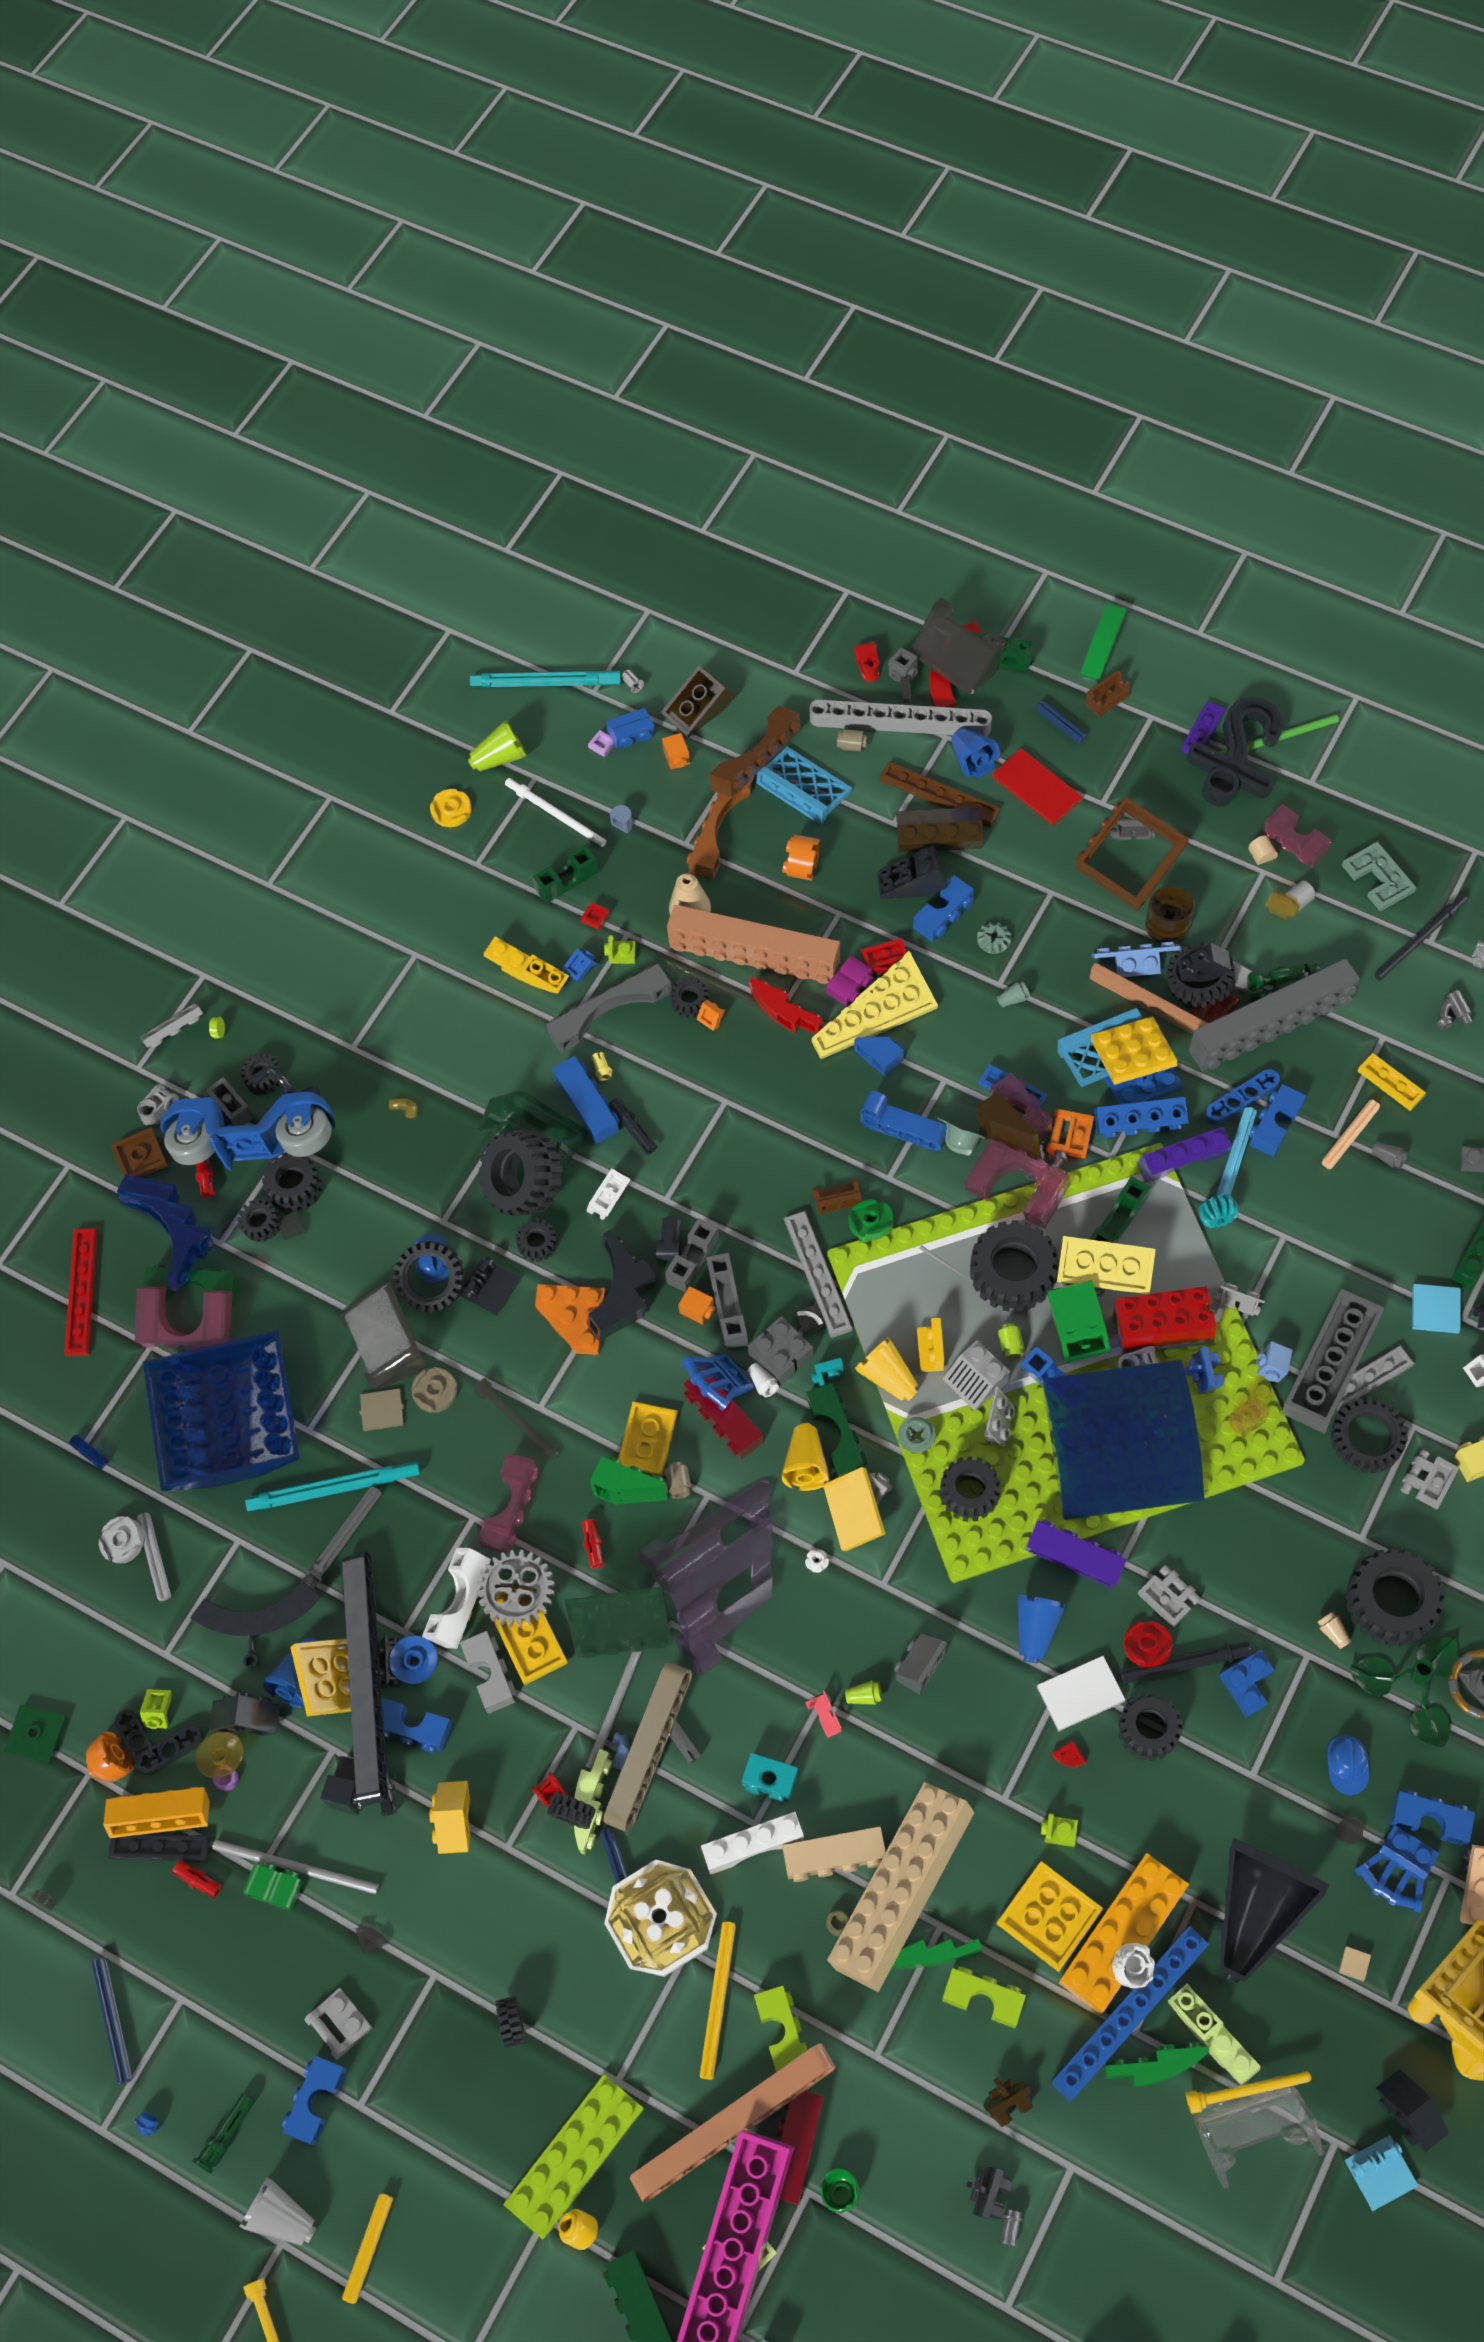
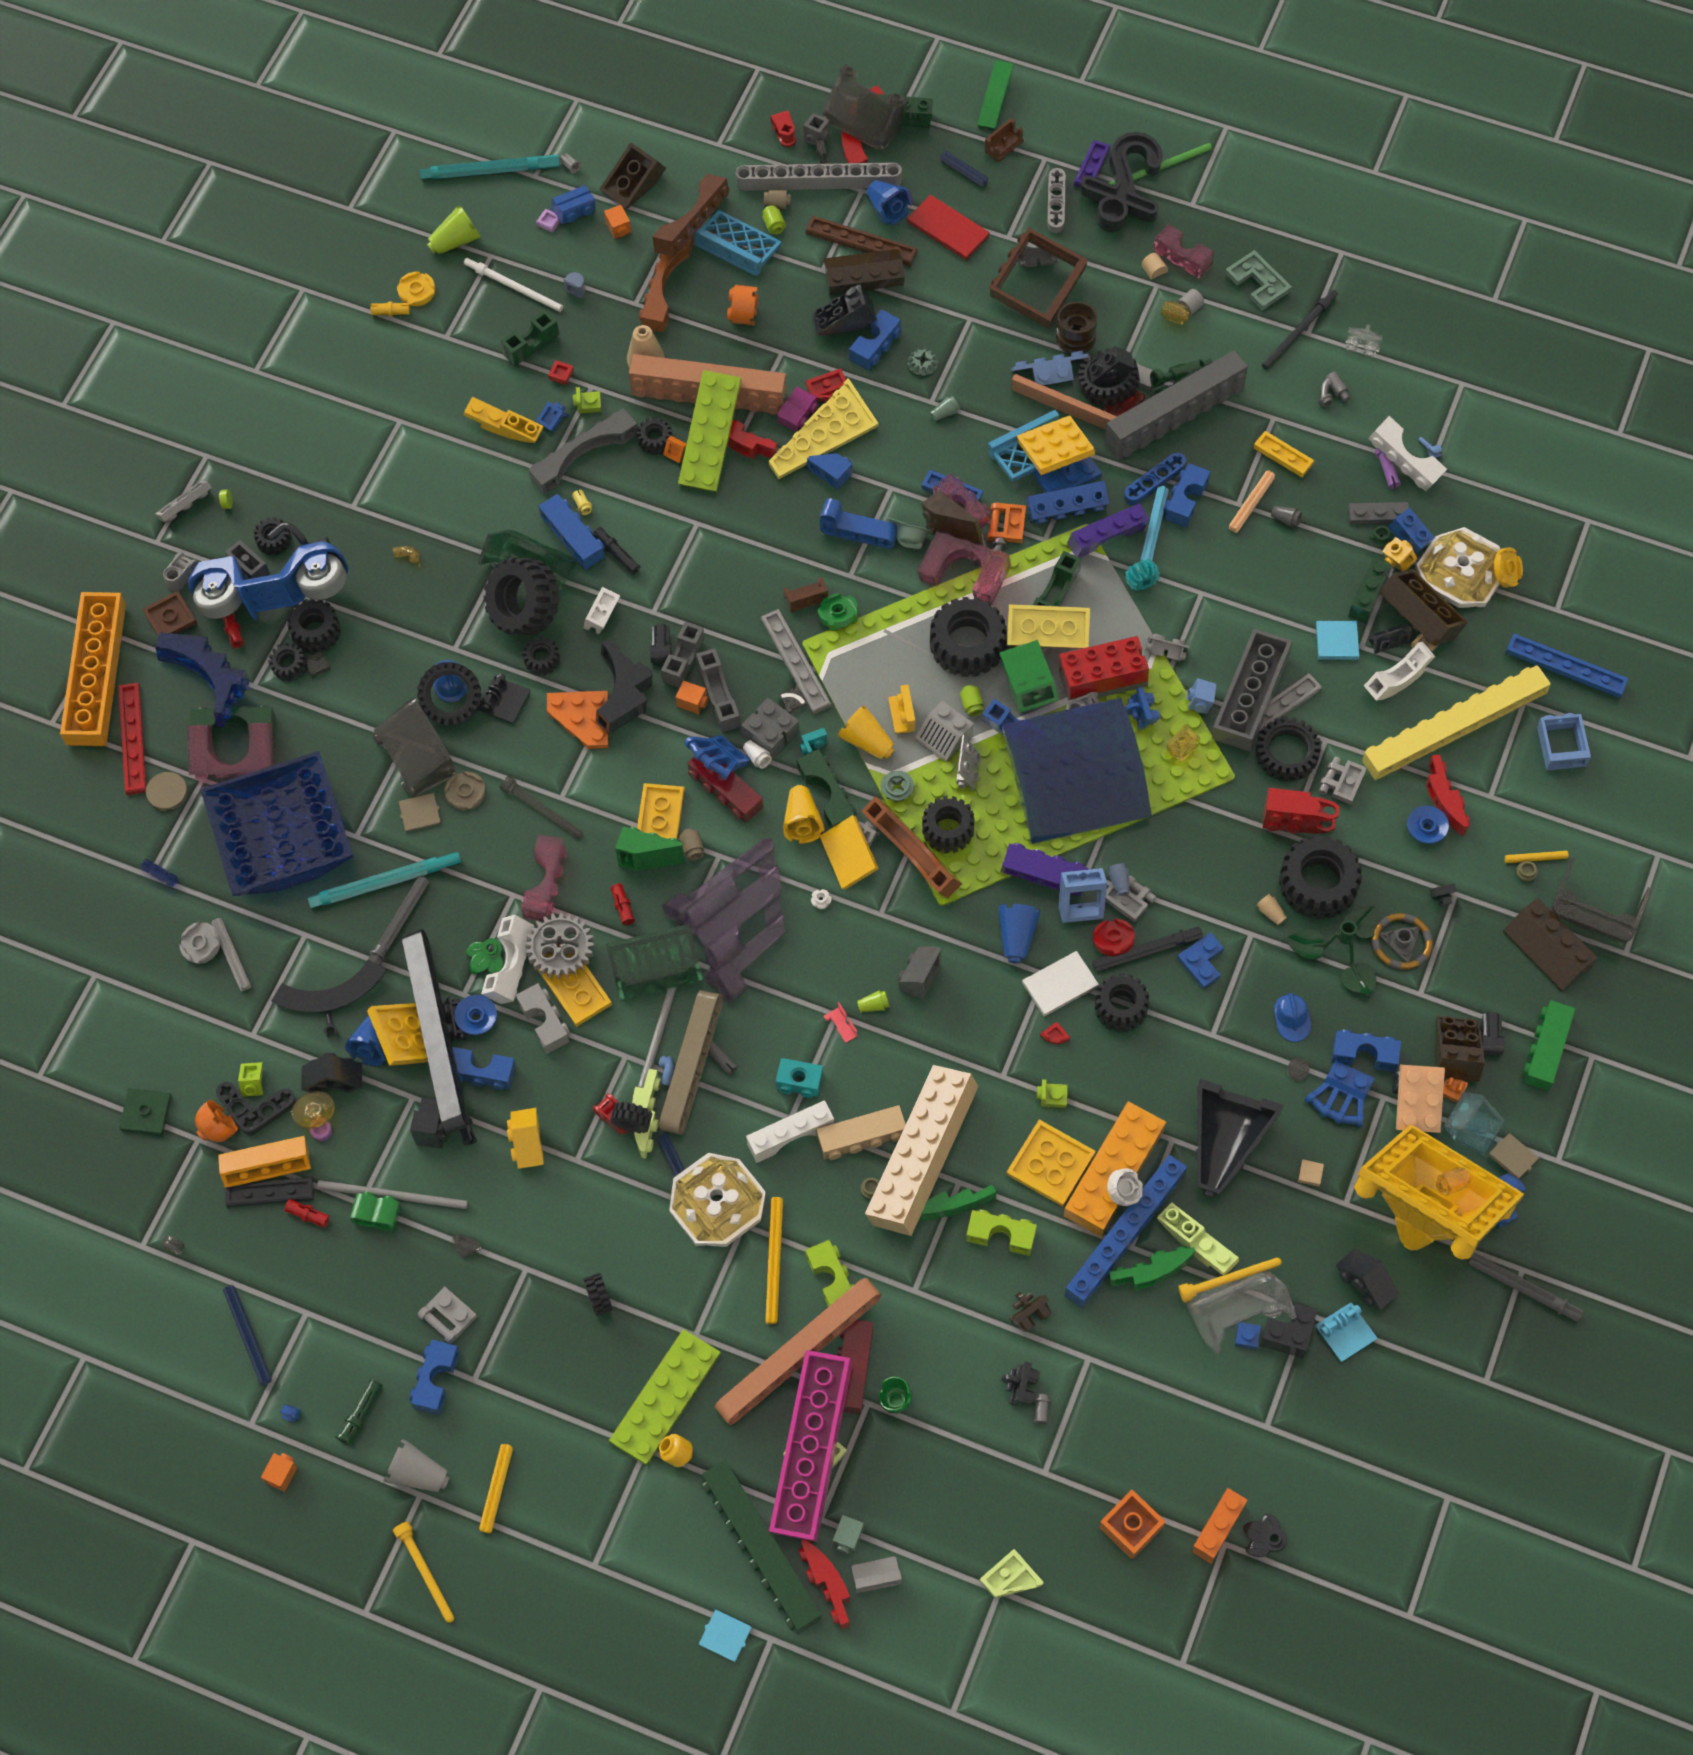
camera: 10 degrees left, 0 degrees up
(48, 1209) = (93, 669): none -> light orange brick
(109, 1357) = (166, 791): none -> dark tan tile
(124, 2196) = (279, 1471): none -> orange brick
(420, 828) = (390, 309): none -> yellow pin
(431, 1593) = (483, 959): none -> green plate
(749, 999) = (709, 431): none -> lime plate
(845, 763) = (773, 220): none -> lime brick
(943, 1535) = (912, 846): none -> dark orange arch
(1105, 1580) = (1071, 882): none -> medium blue window
(1161, 1575) = (1120, 878): none -> sand blue cone
(1162, 766) = (1056, 200): none -> light grey beam
(1263, 2162) = (1247, 1335): none -> blue plate
(1317, 2173) = (1293, 1336): none -> black brick
(1374, 1515) = (1297, 812): none -> red brick

